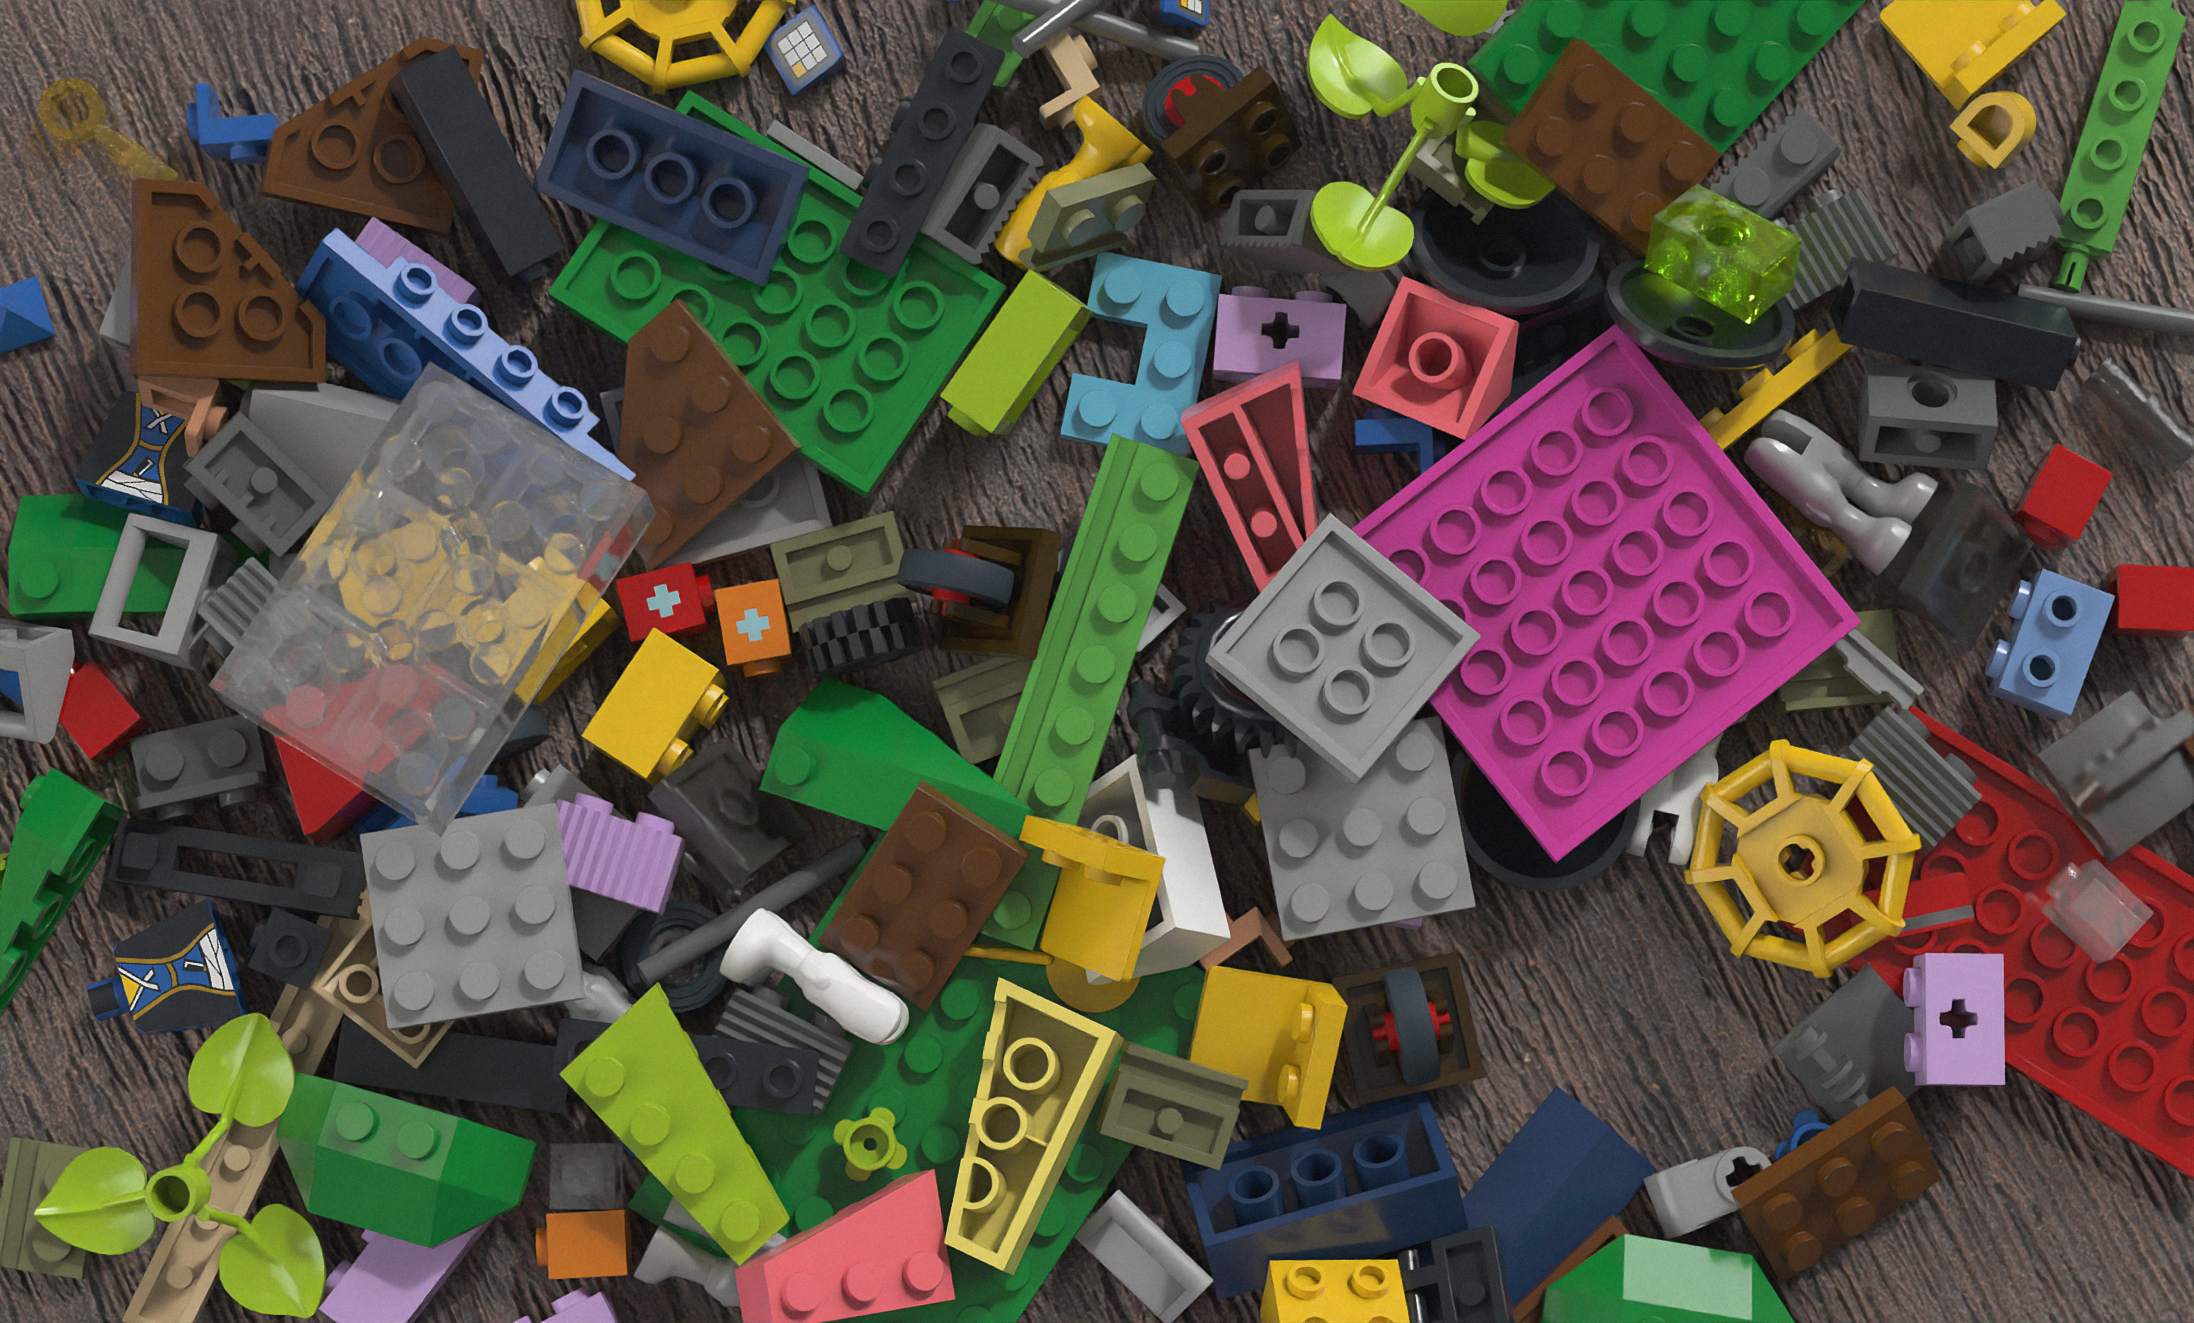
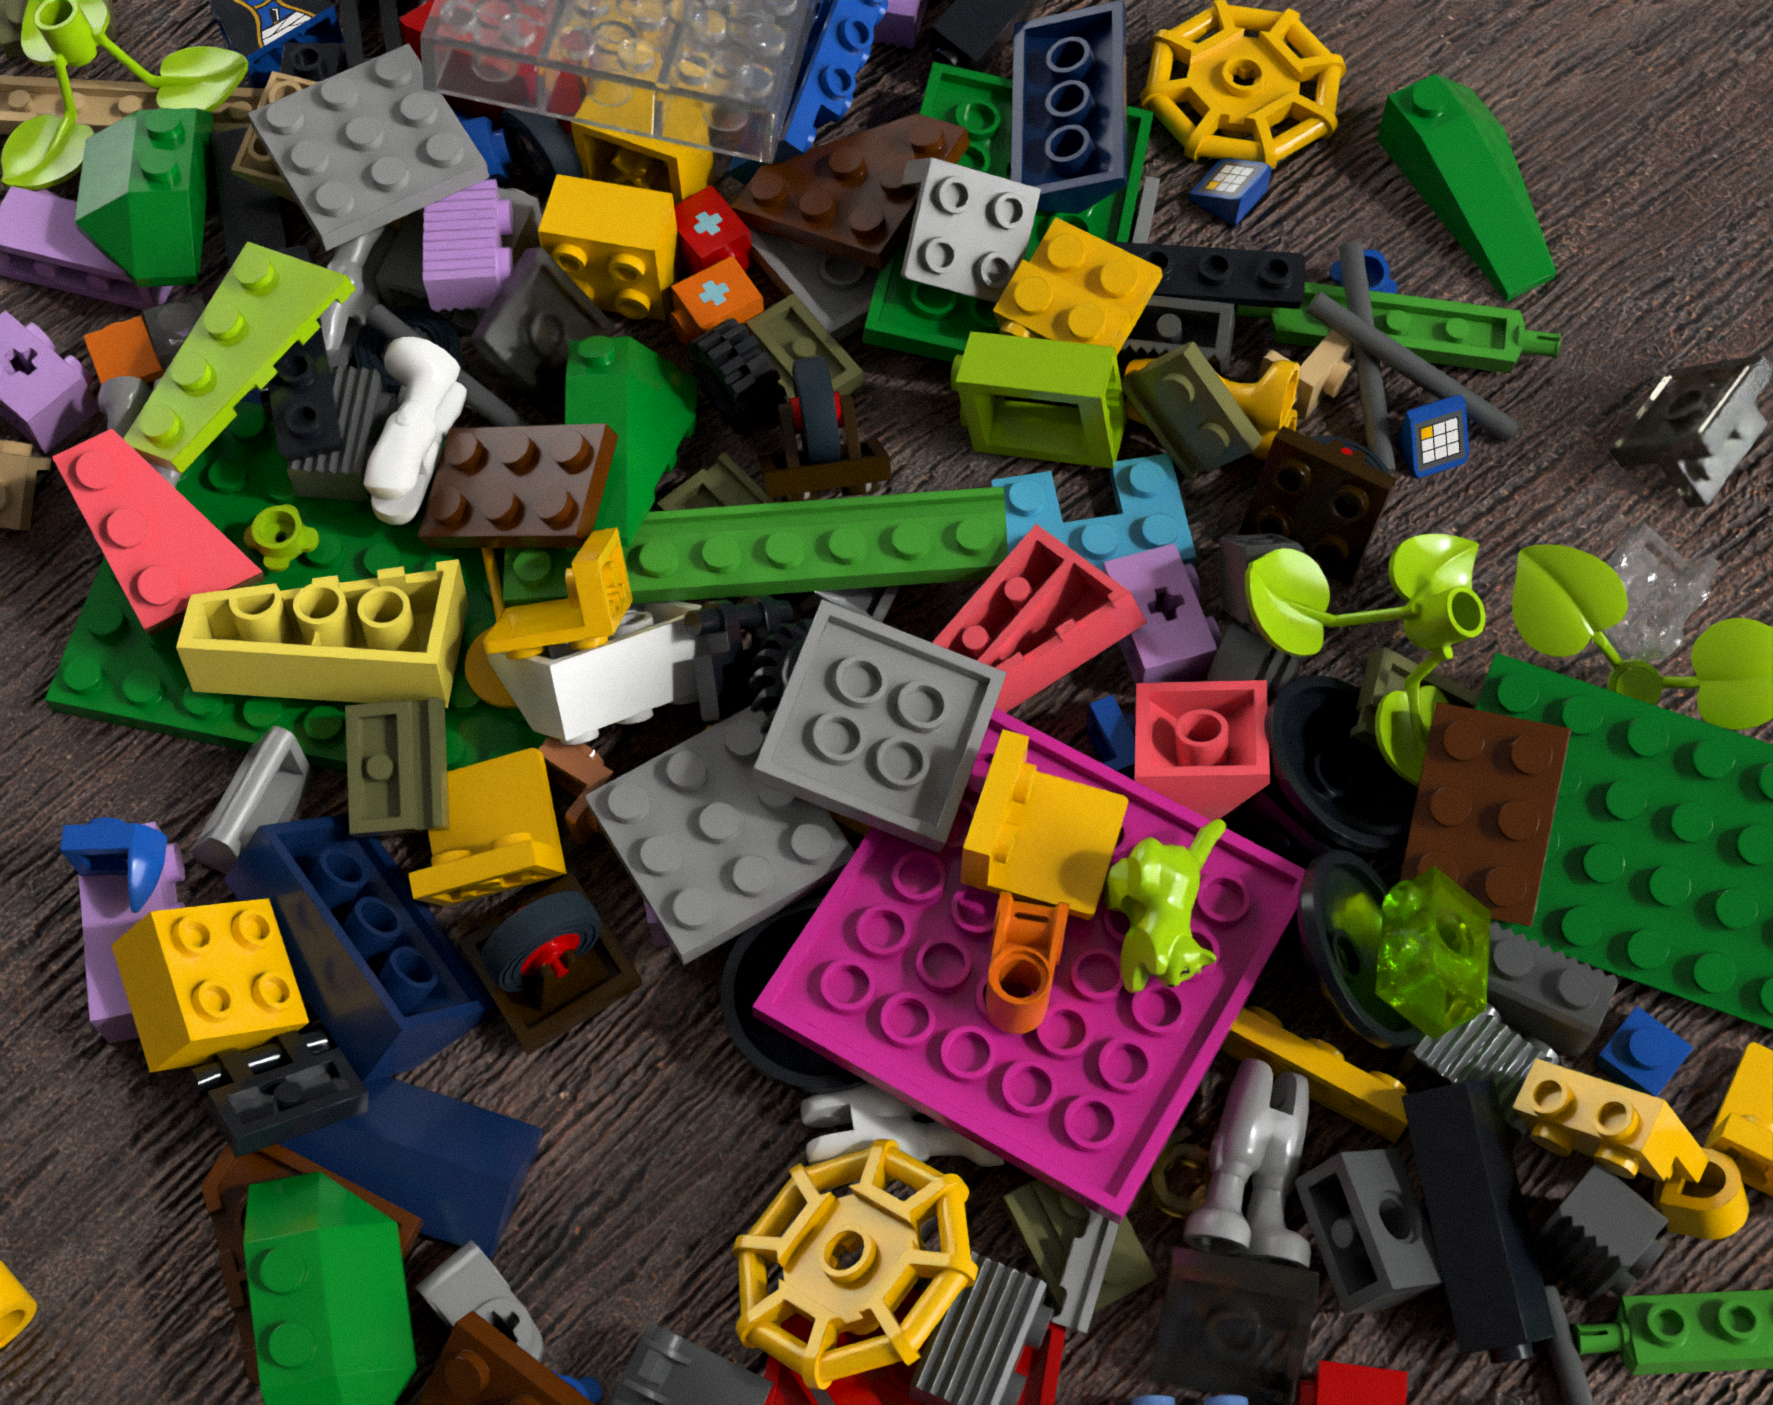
camera: 70 degrees right, 20 degrees down
(806, 343) = (966, 228): none -> light grey bracket
(928, 275) = (1077, 290): none -> yellow plate
(1502, 545) = (1041, 833): none -> yellow bracket
(1602, 470) = (1157, 895): none -> lime animal
(1609, 607) = (1024, 951): none -> orange piece
(1852, 109) = (1643, 1054): none -> blue plate
(1942, 178) = (1607, 1122): none -> yellow plate

